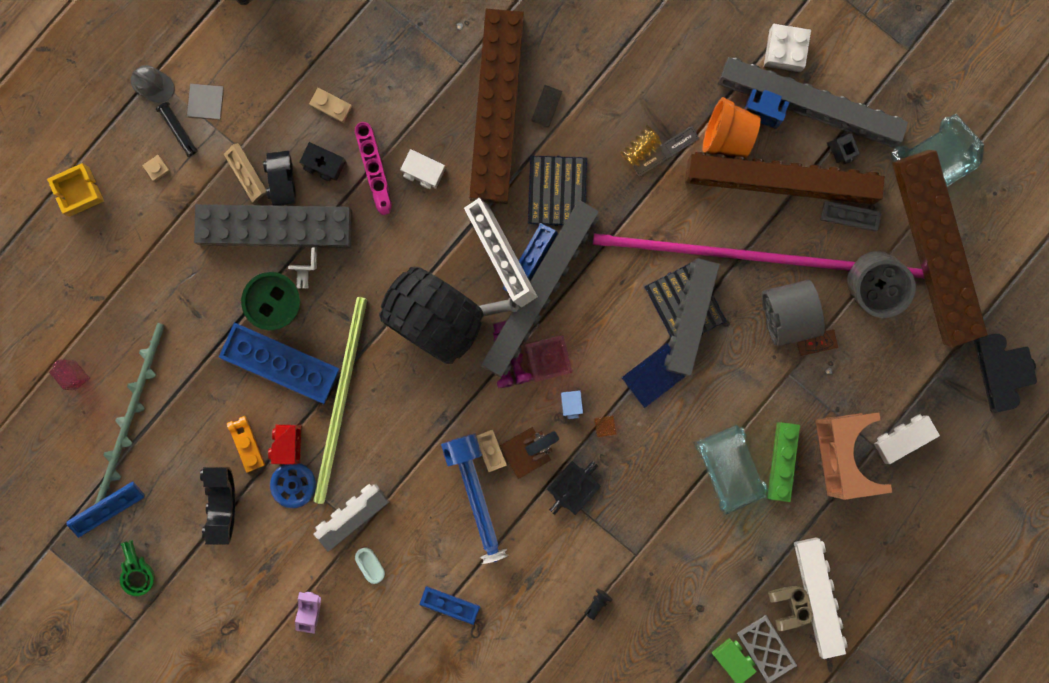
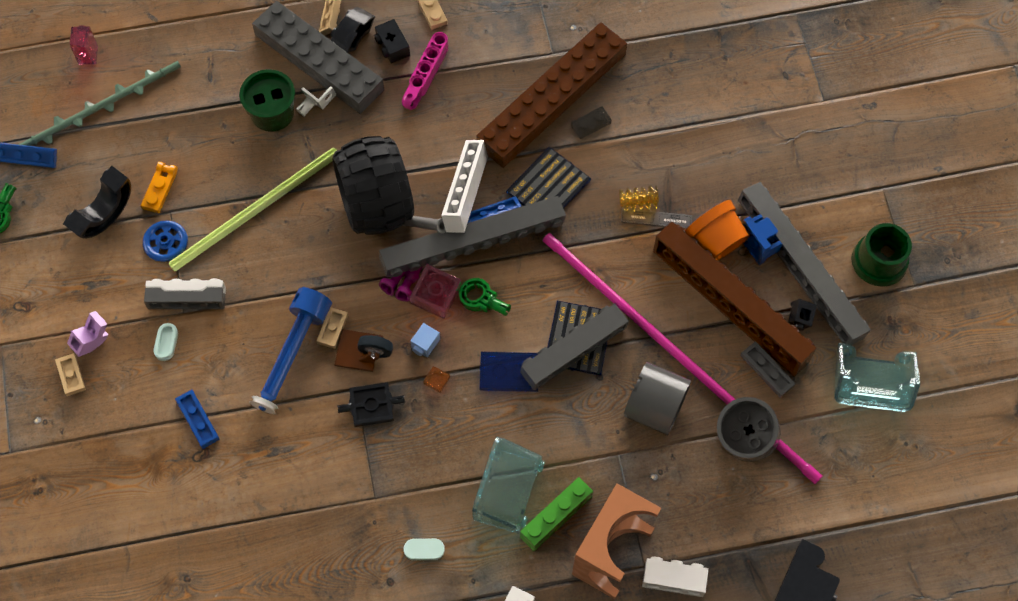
camera: 40 degrees right, 20 degrees down
(279, 363) = (236, 150): blue plate -> none
(287, 445) = (186, 205): red slope -> none
(321, 652) = (70, 374): none -> tan plate
(422, 169) = (460, 97): white brick -> none
(597, 604) = (313, 507): black pin -> none
(599, 330) = (486, 301): none -> green pin
(706, 565) = (424, 549): none -> light aqua tile
(787, 48) = (813, 210): white brick -> none
(818, 344) = (661, 445): reddish brown tile -> none
(885, 47) = (876, 267): none -> dark green piece
(939, 248) = (820, 439): reddish brown brick -> none

